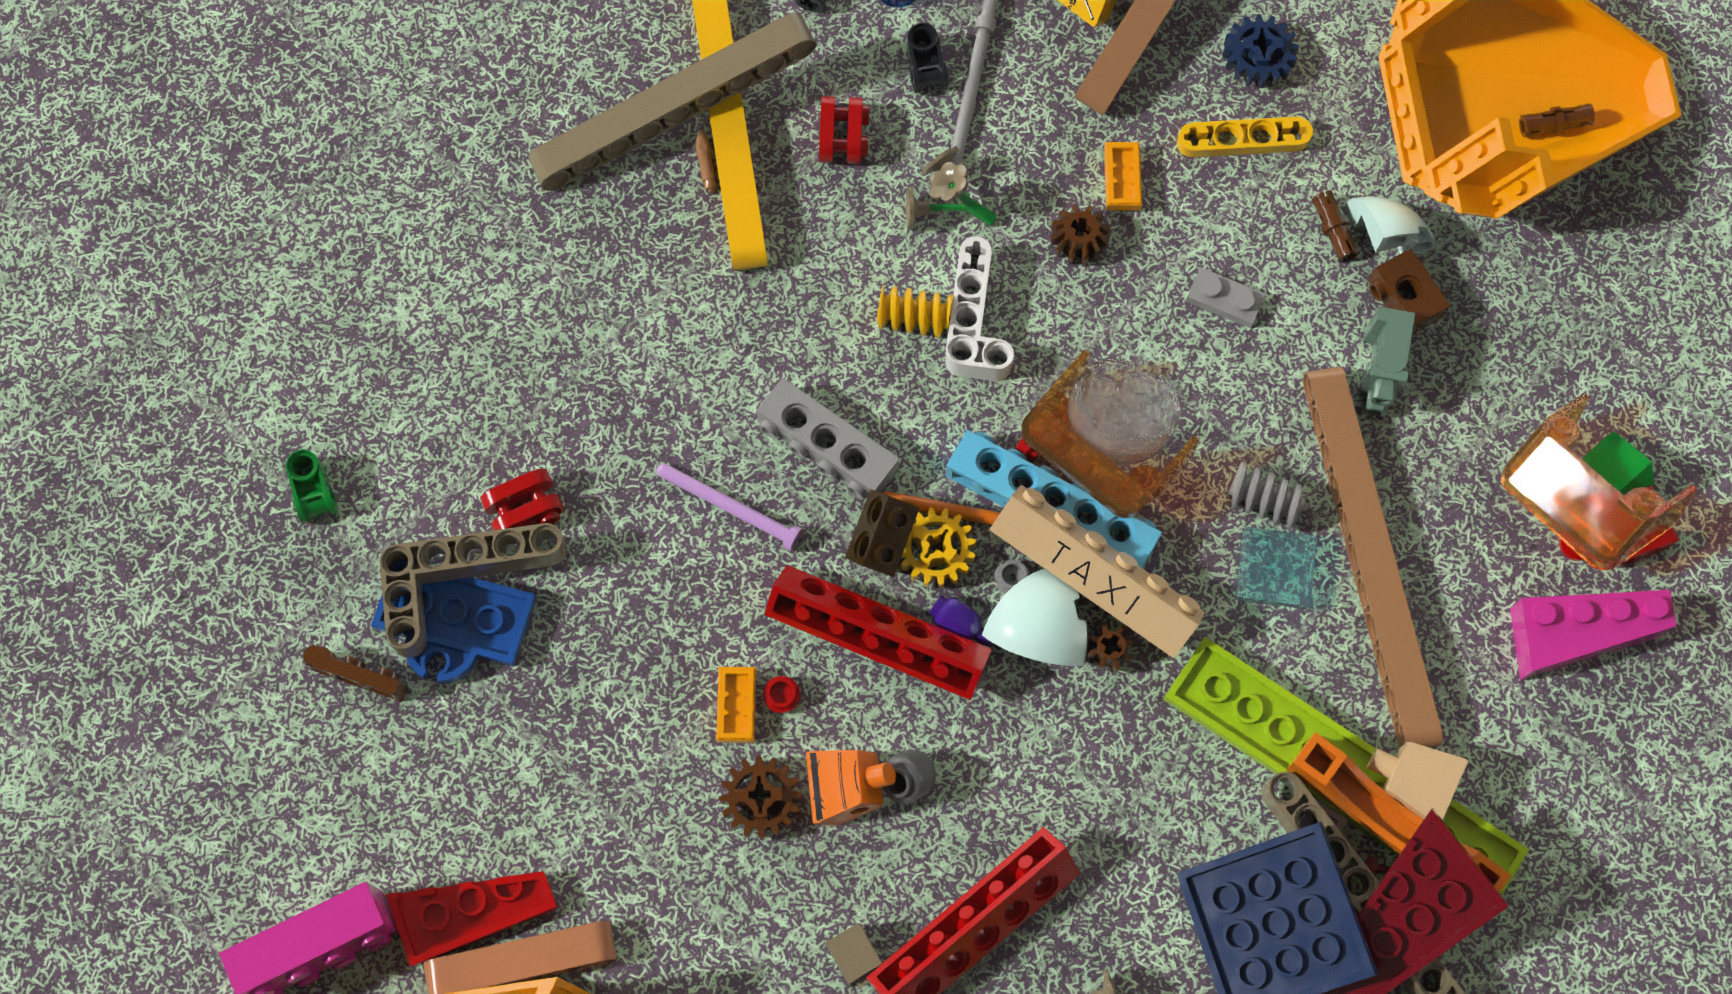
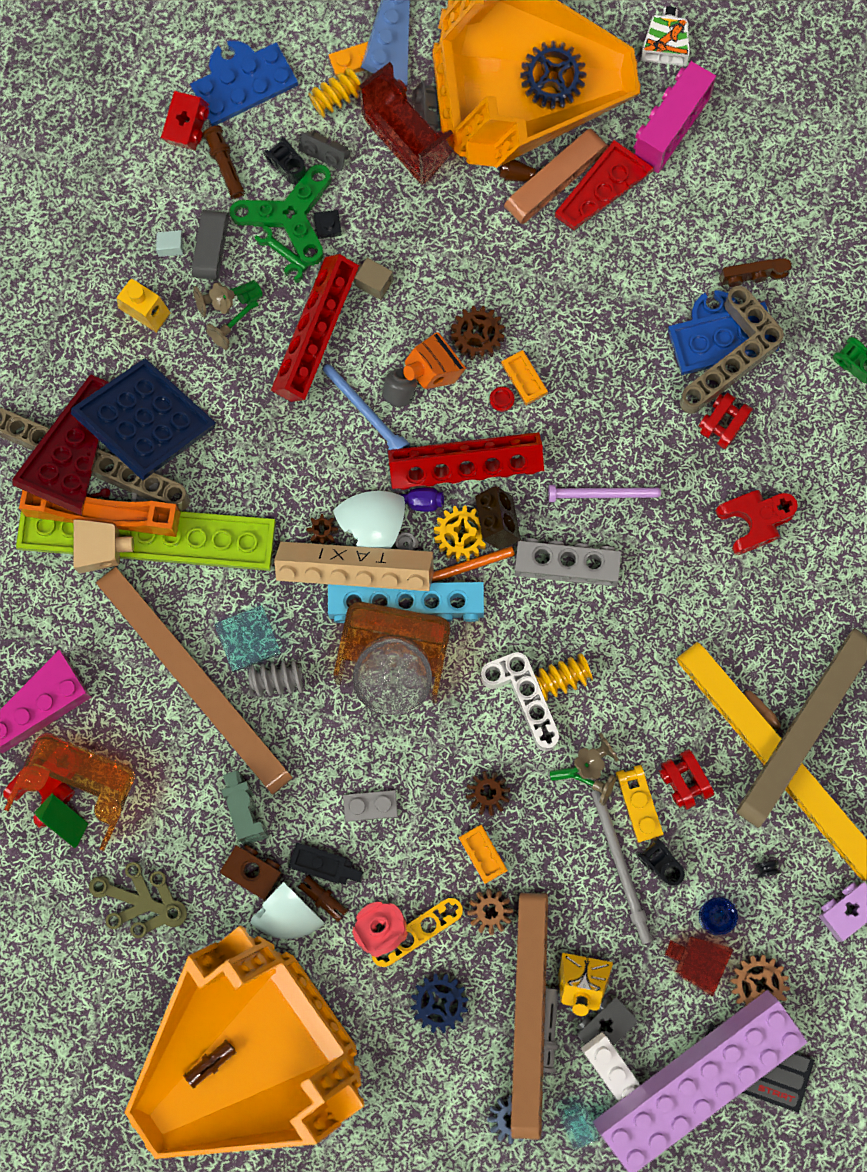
camera: 155 degrees right, 5 degrees up
(559, 366) = (761, 517): none -> red piece
(910, 136) = (639, 804): none -> yellow plate
(952, 711) = (394, 441): none -> medium blue piece
(1147, 122) = (498, 909): none -> medium nougat gear
(1273, 142) = (389, 938): none -> coral plate
(1316, 259) = (323, 865): none -> black hinge
(1558, 333) = (143, 902): none -> olive plant

